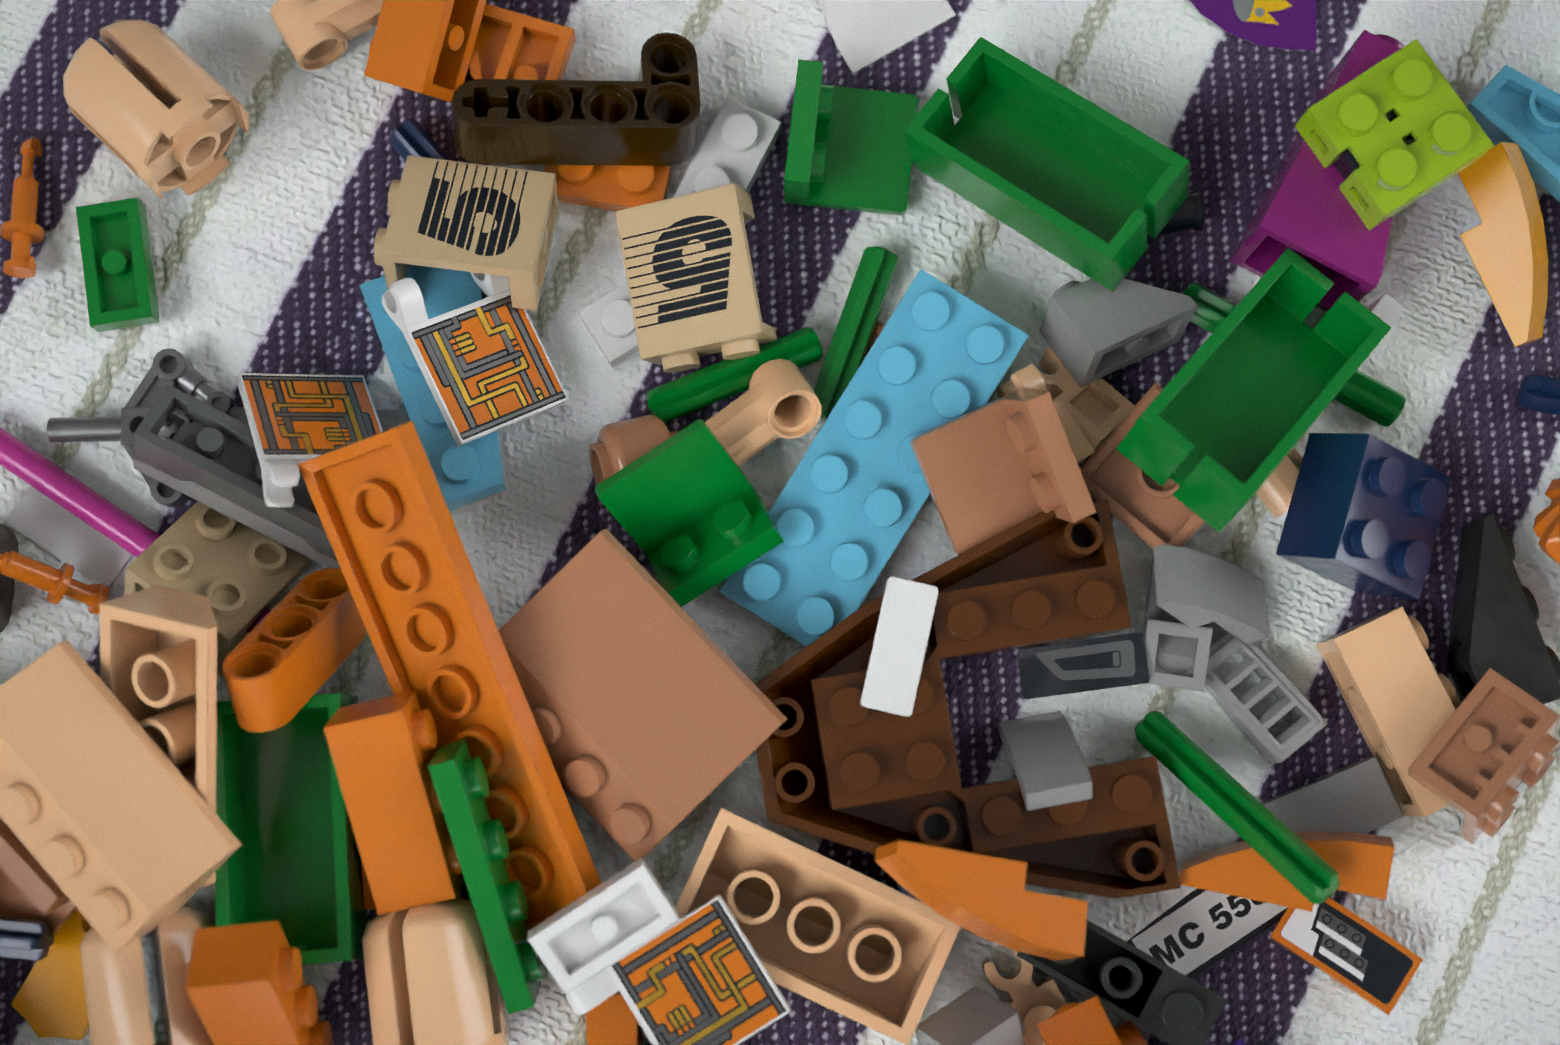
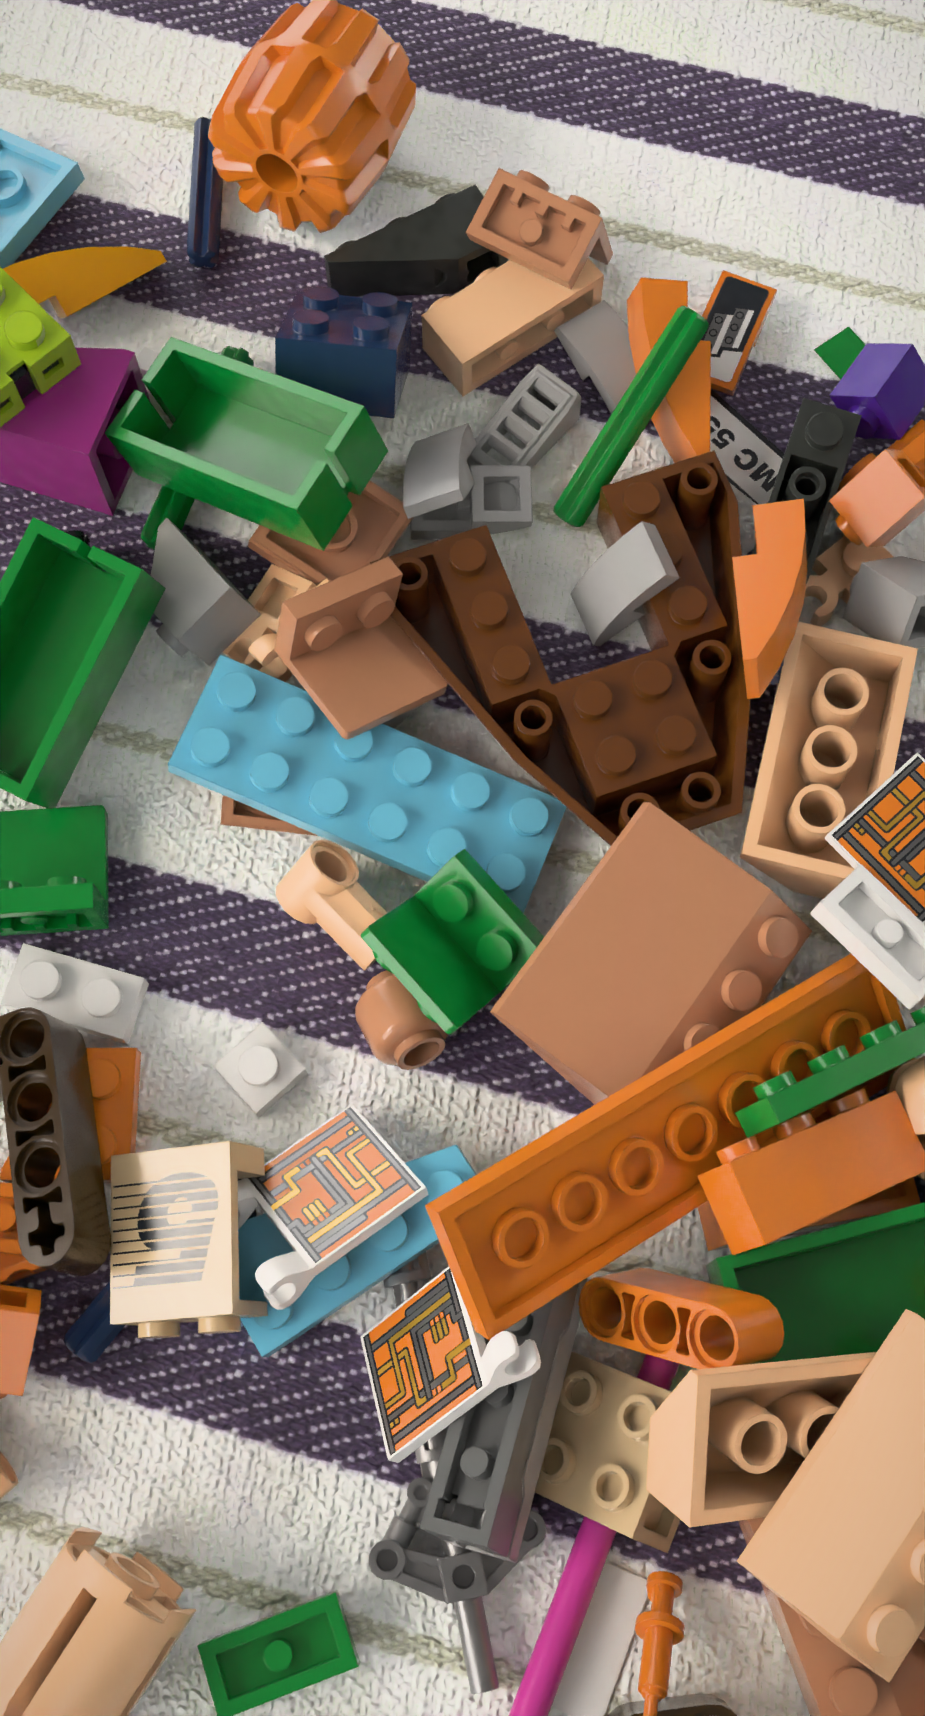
camera: 100 degrees left, 10 degrees down
(692, 278) = (206, 988): tan panel -> none
(730, 376) = (298, 946): green axle -> none
(855, 325) = (227, 834): green axle -> none
(899, 646) = (549, 716): white sticker -> none
(1083, 666) = (528, 572): black sticker -> none

